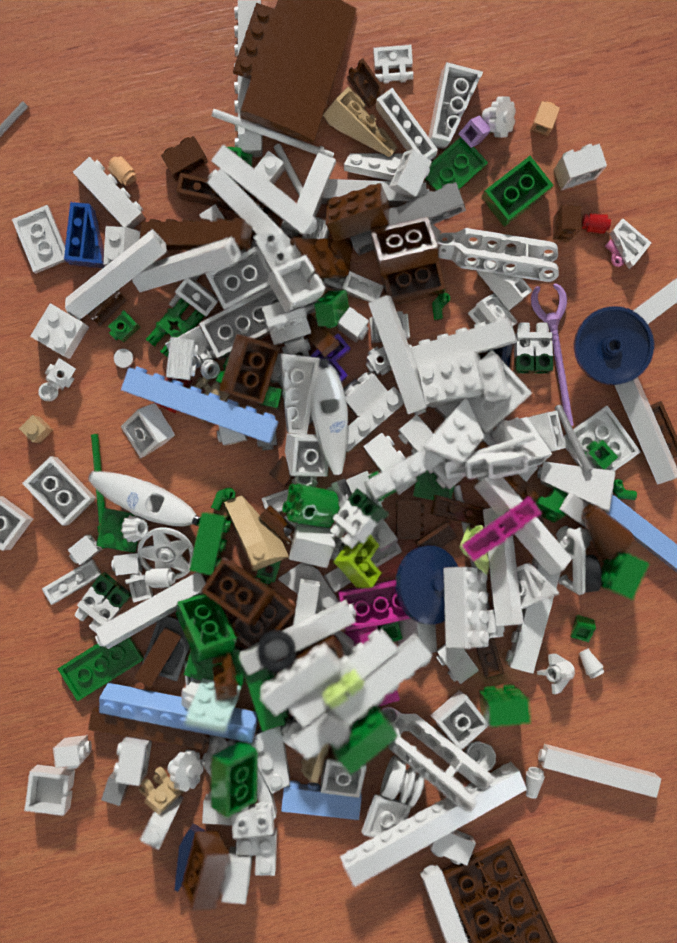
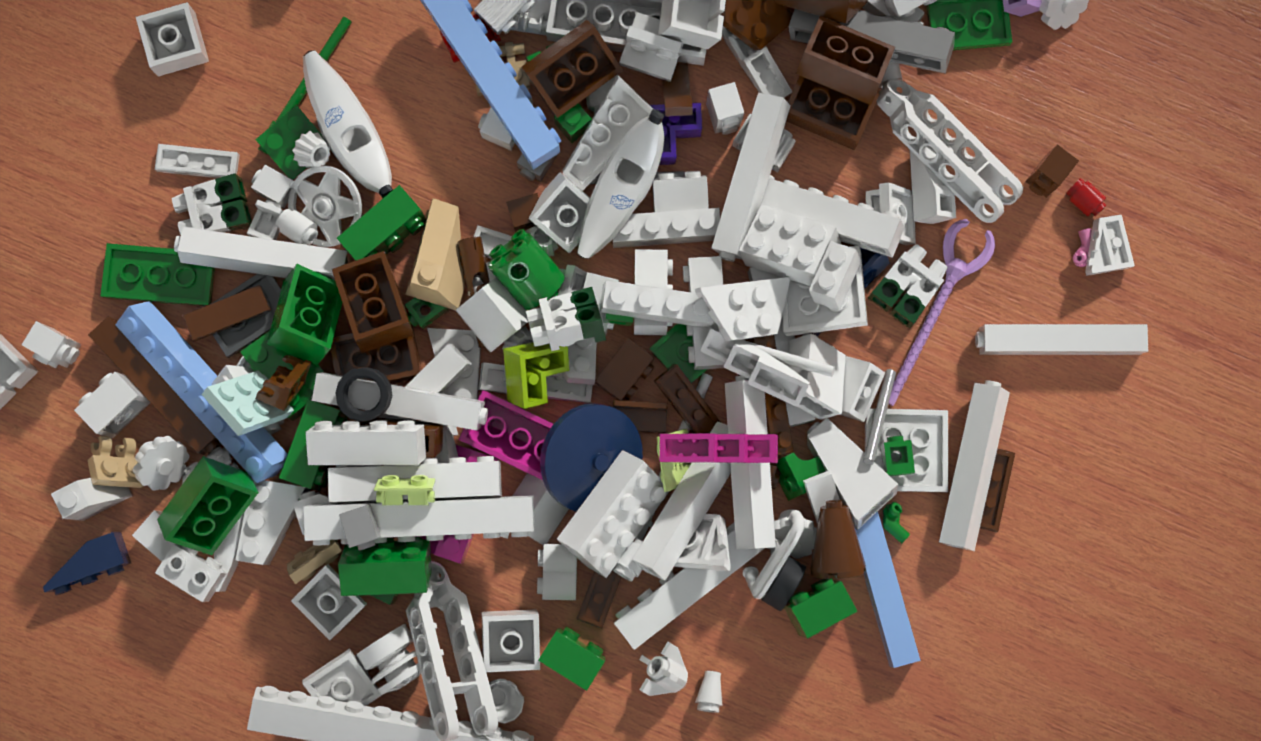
camera: 40 degrees right, 5 degrees down
(59, 490) = (261, 50): white brick -> none
(84, 550) = (238, 135): white brick -> none
(114, 791) = (65, 426): light grey brick -> none
(147, 430) = (409, 56): white slope -> none
(205, 870) = (95, 586): reddish brown brick -> none
(214, 371) = (529, 47): white plate -> none
(222, 496) = (434, 190): green arm -> none
(237, 878) = (124, 623): white brick -> none
(265, 850) = (180, 616): white brick -> none
(297, 347) = (645, 86): white brick -> none
(309, 800) = (275, 609): light blue brick -> none
(331, 308) = (713, 69): green brick -> none
(374, 366) = (720, 178): white brick -> none
(392, 630) = (511, 482): green slope -> none
(438, 304) = (840, 158): green arm -> none
(517, 191) = (1021, 96): green brick -> none
(545, 118) = (1114, 40): light nougat brick -> none
(580, 166) = (1112, 120): white brick -> none
(583, 628) = (731, 646): green slope -> none
(613, 345) = (1001, 343): dark blue dish -> none

